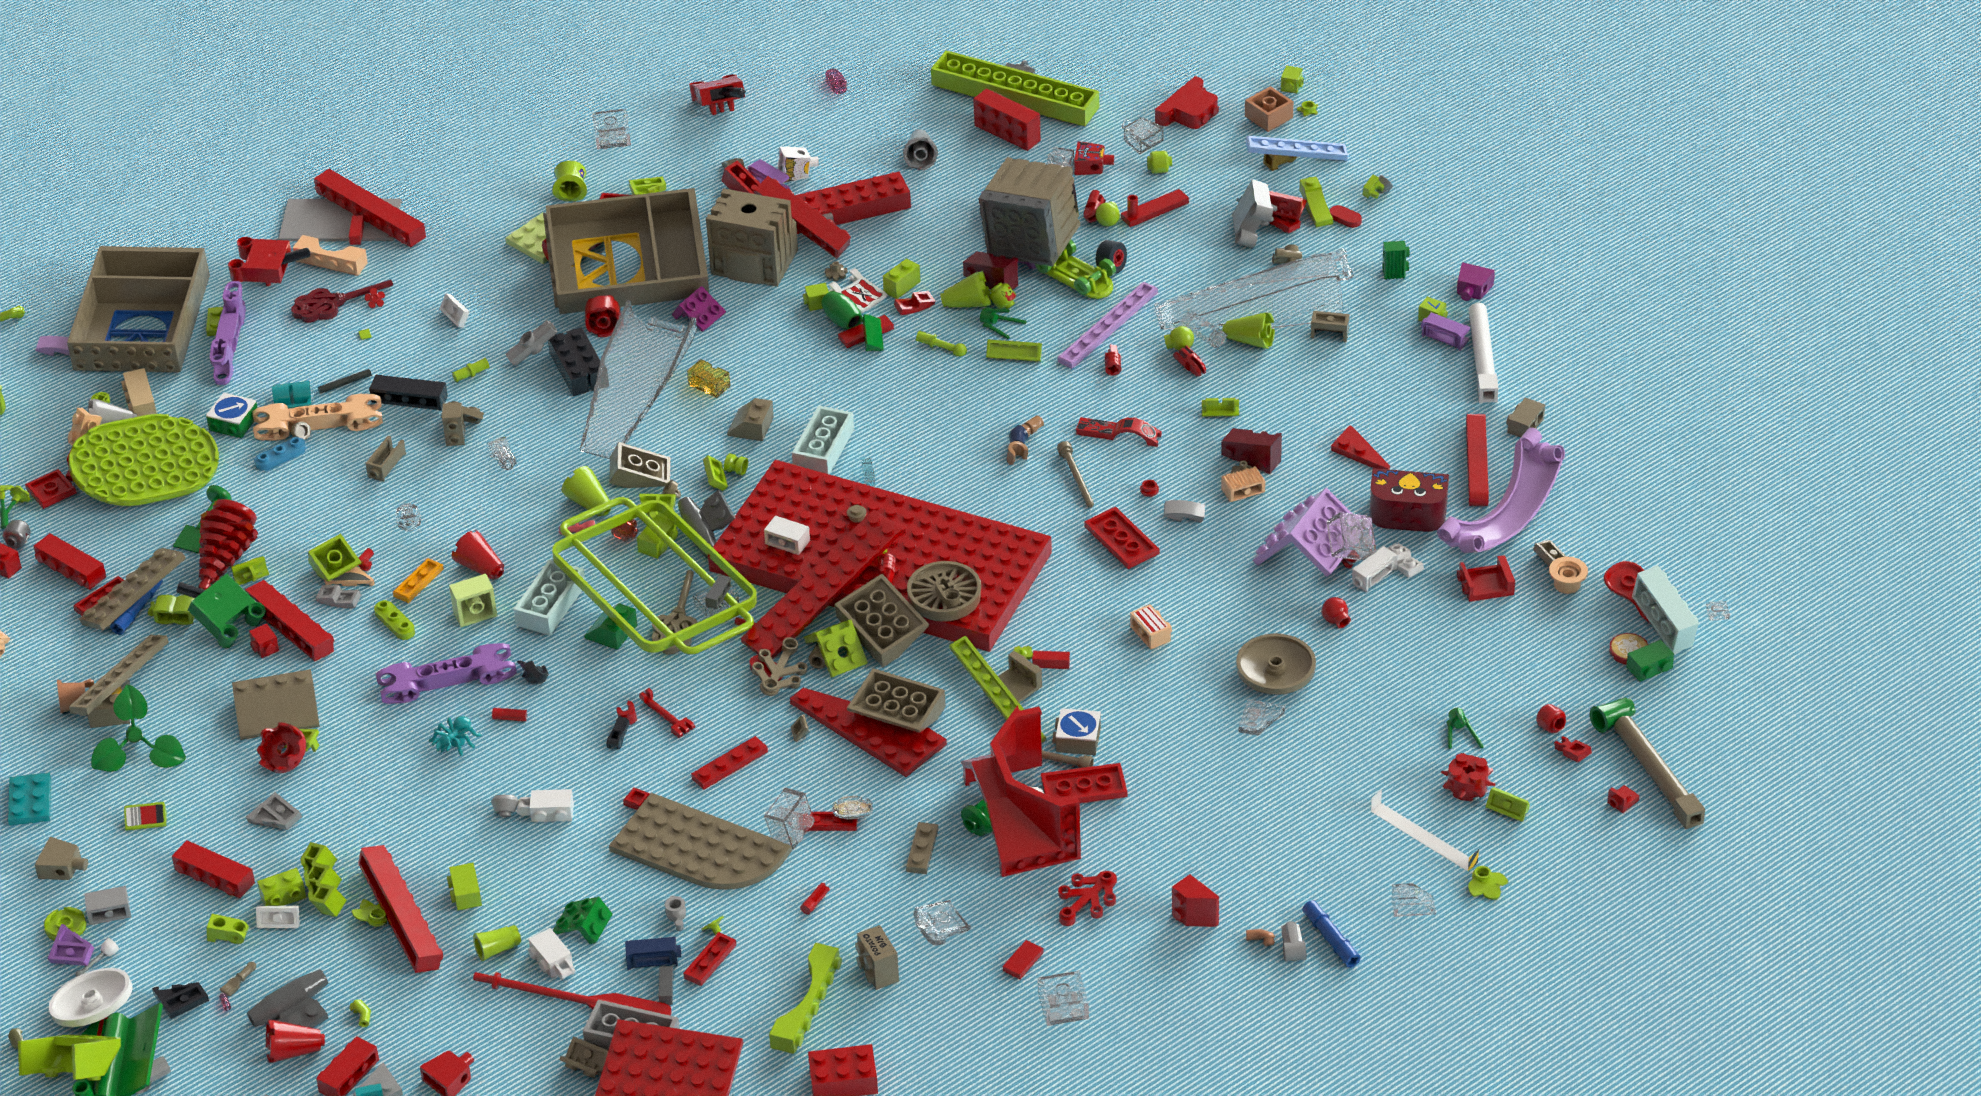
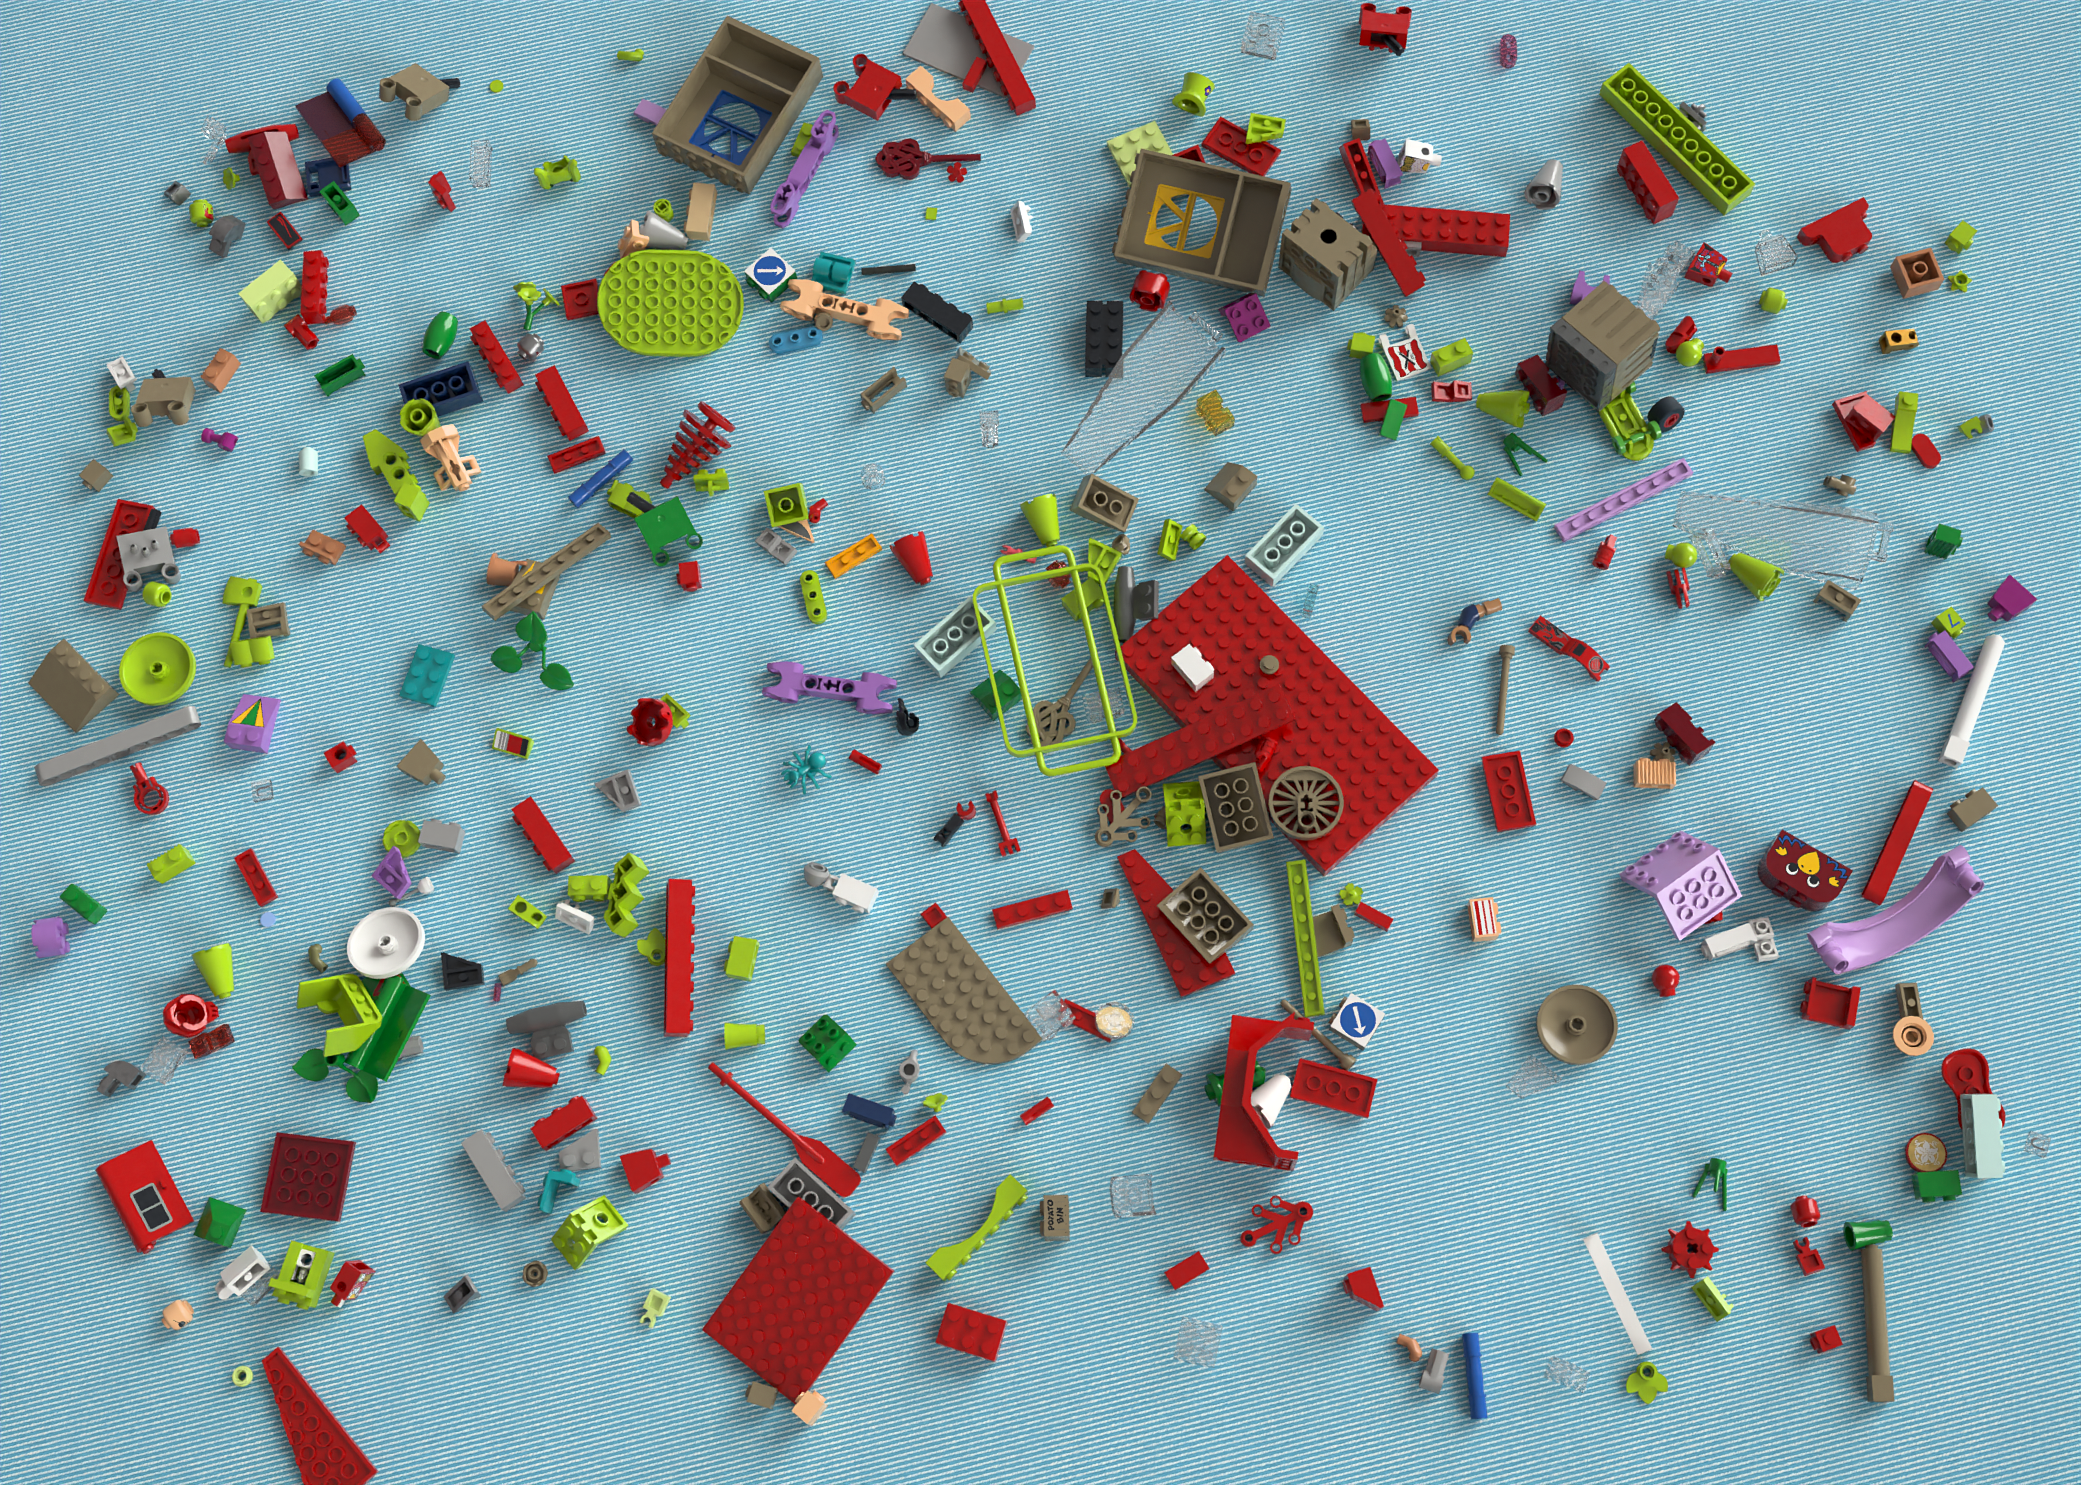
camera: 30 degrees right, 30 degrees up
(132, 588) = (600, 463): dark tan plate -> none
(190, 535) = (674, 413): green piece -> none
(275, 699) = (670, 660): dark tan slope -> none
(292, 621) = (721, 560): red brick -> none
(473, 600) = (885, 612): yellowish green brick -> none
(531, 342) = (1069, 302): light grey piece -> none
(551, 954) = (783, 1072): white brick -> none
(718, 592) = (1099, 713): dark grey piece -> none
(1002, 296) = (1537, 423): lime head -> none
(1228, 407) = (1679, 662): lime hinge -> none
(1252, 210) = (1829, 420): light grey piece -> none
(1296, 148) = (1918, 343): light blue tile -> none
(1351, 536) = (1718, 911): clear brick -> none
(1355, 447) = (1787, 771): red wing -> none

